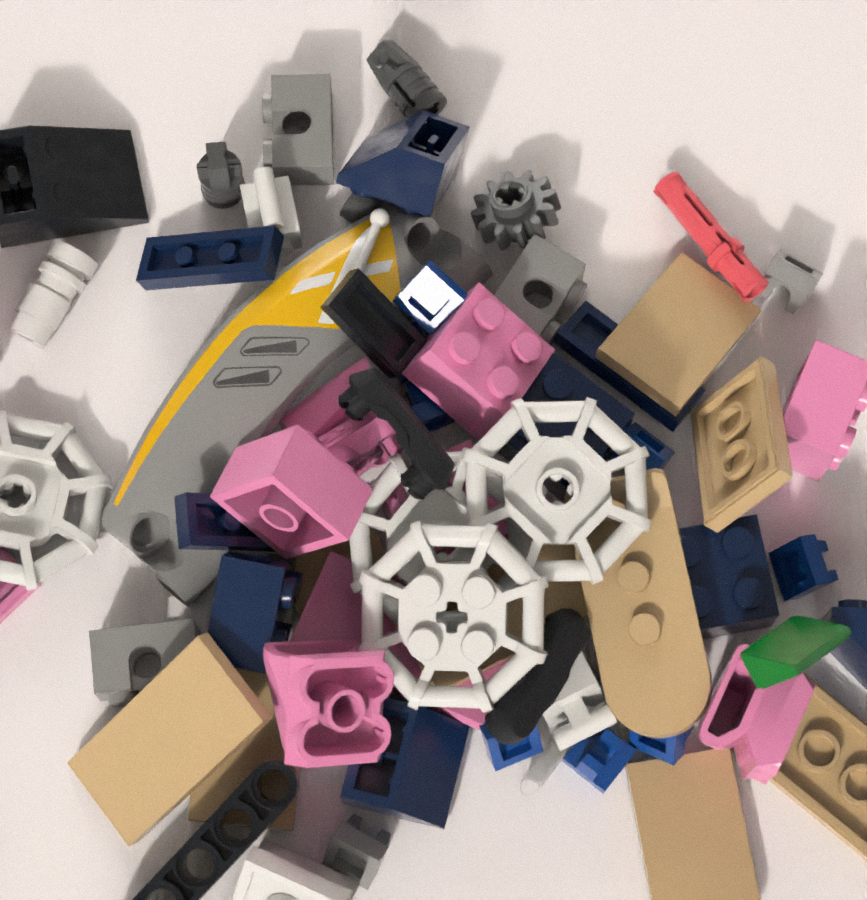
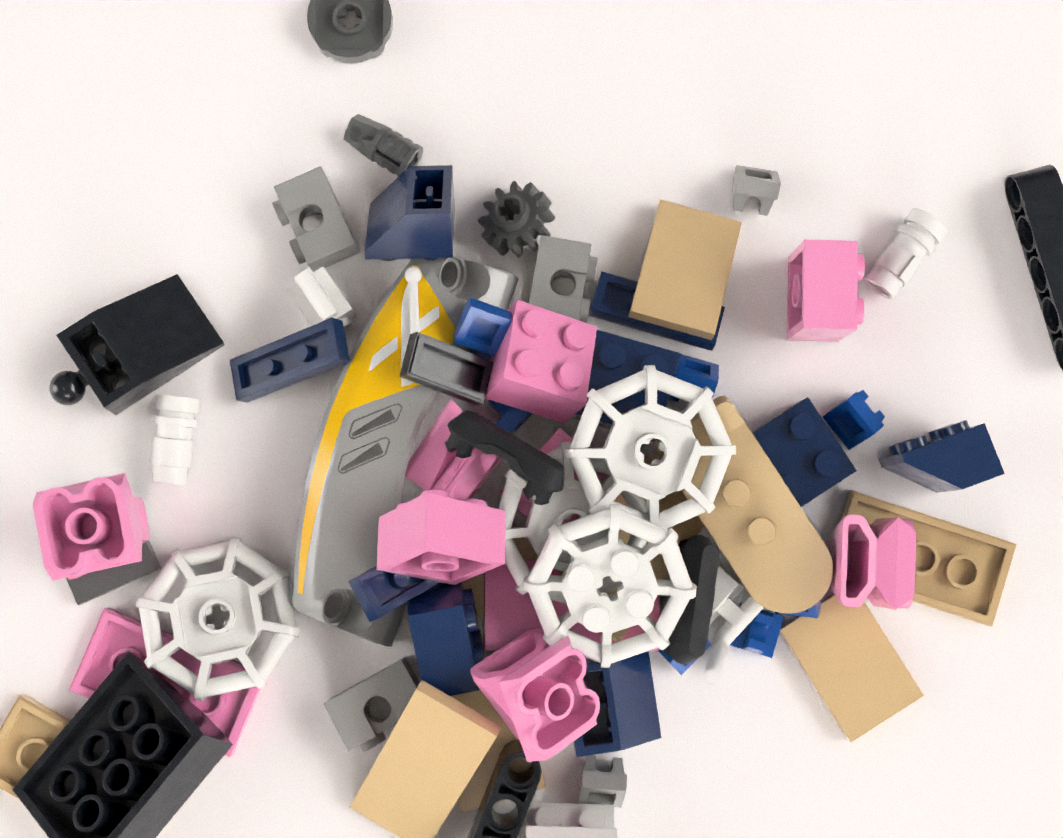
camera: 25 degrees left, 10 degrees up
(220, 176) = (267, 286): dark grey hinge -> none
(358, 207) = (390, 270): dark grey hinge -> none
(723, 252) = (693, 186): coral pin -> none
(740, 445) = (776, 347): tan tile -> none
(791, 649) = (886, 504): green slope -> none

